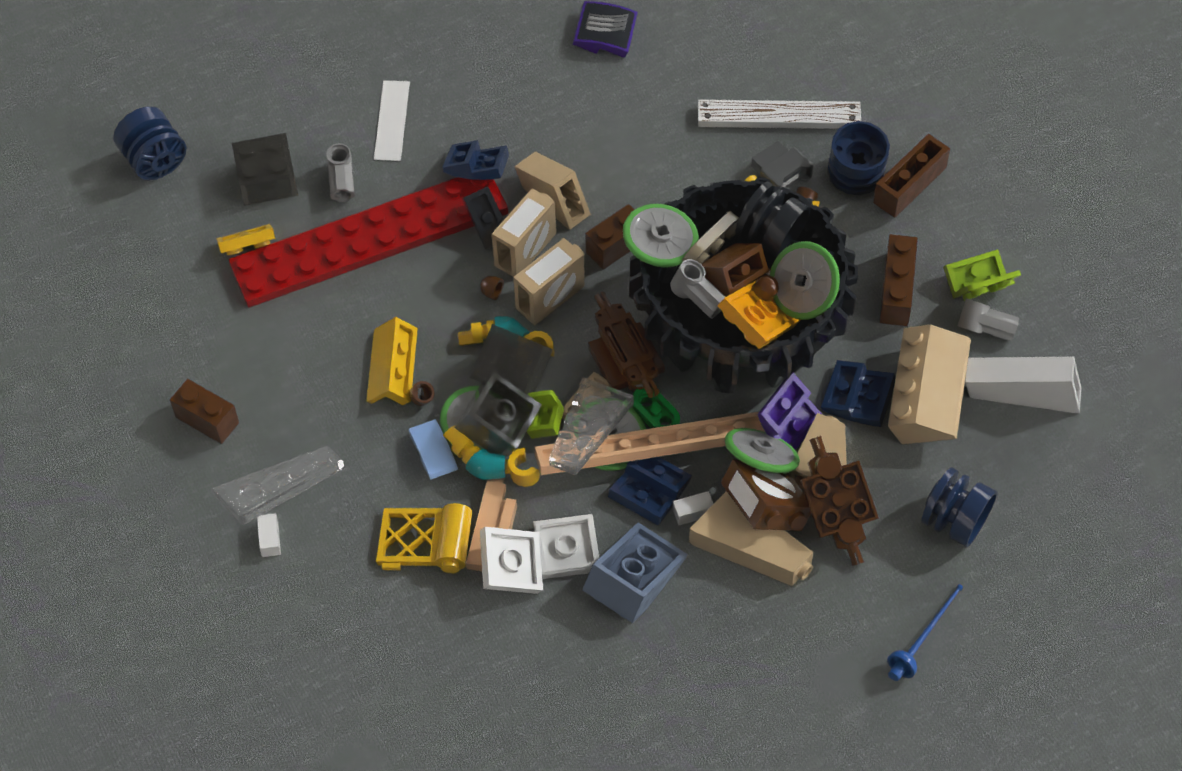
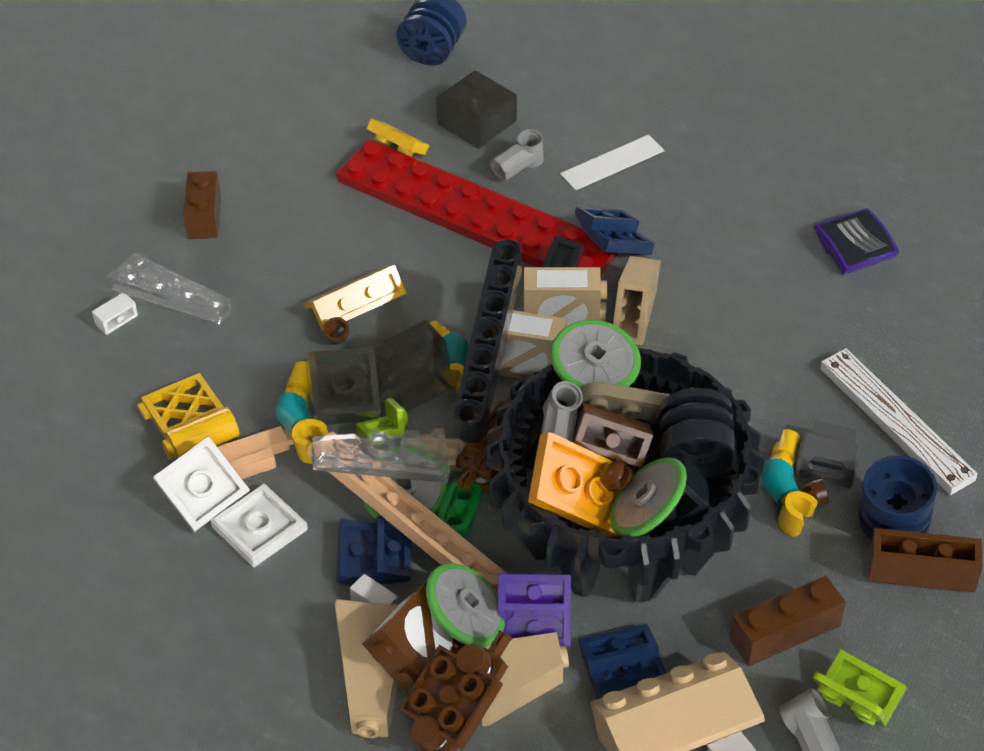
camera: 55 degrees right, 10 degrees down
(433, 449) = (275, 375): light blue slope -> none
(558, 305) = (491, 322): none -> black beam
(633, 572) = (264, 587): sand blue slope -> none

